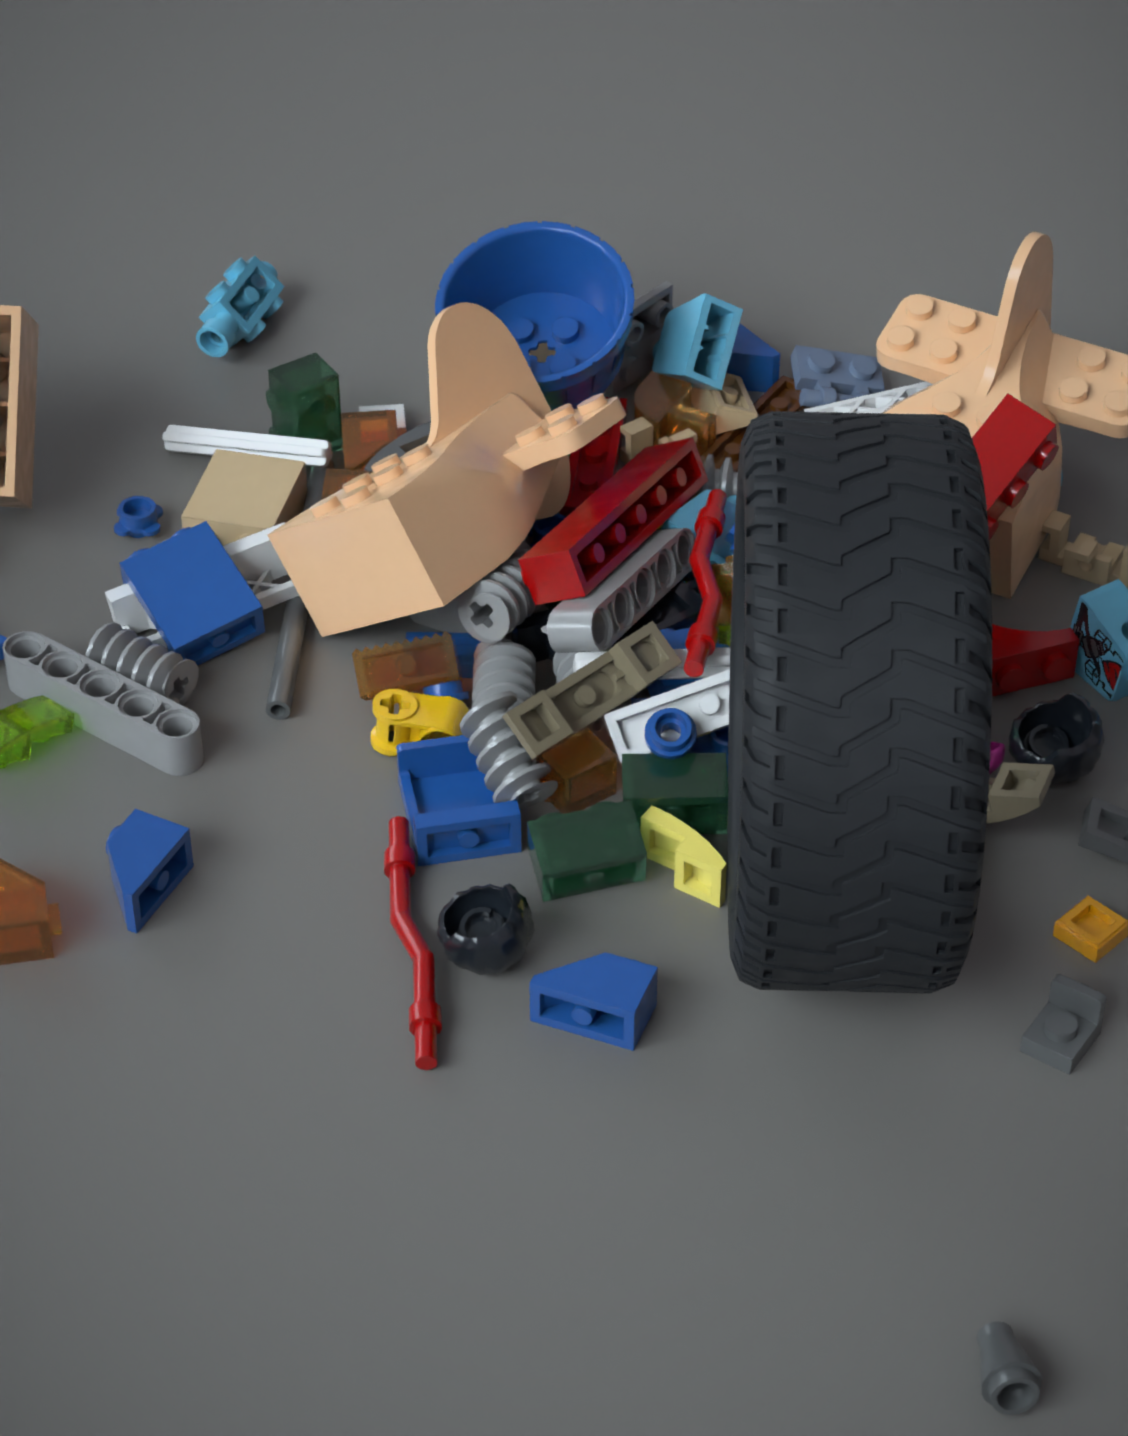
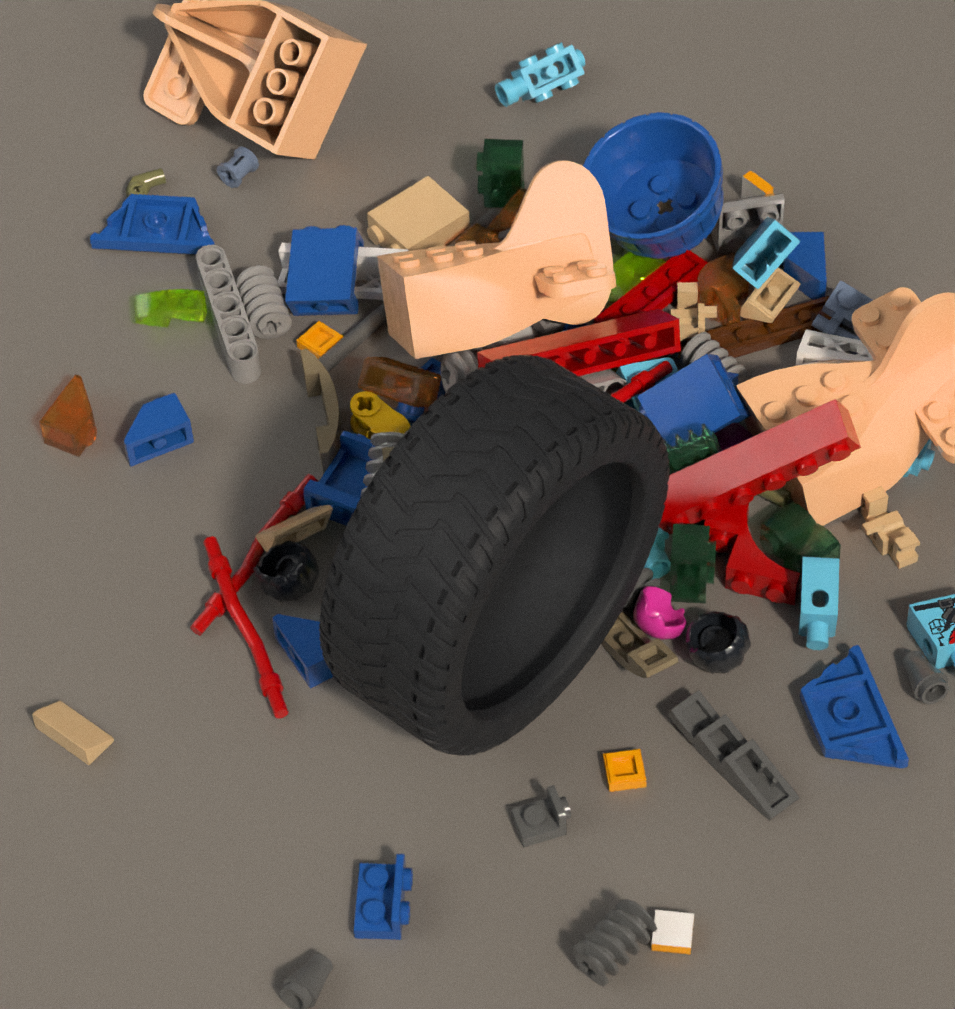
camera: 40 degrees right, 10 degrees up
(138, 517) = (358, 198): blue plate -> none
(206, 441) = (458, 180): white axle -> none
(245, 682) = (318, 339): none -> light orange tile
(296, 716) = (320, 383): none -> dark tan slope
(386, 1269) = (72, 731): none -> tan slope
(437, 881) = (296, 527): none -> tan slope
(585, 1066) = (269, 682): none -> red bar
(987, 1219) = (381, 900): none -> blue bracket
(1031, 601) = (796, 535): none -> clear green brick

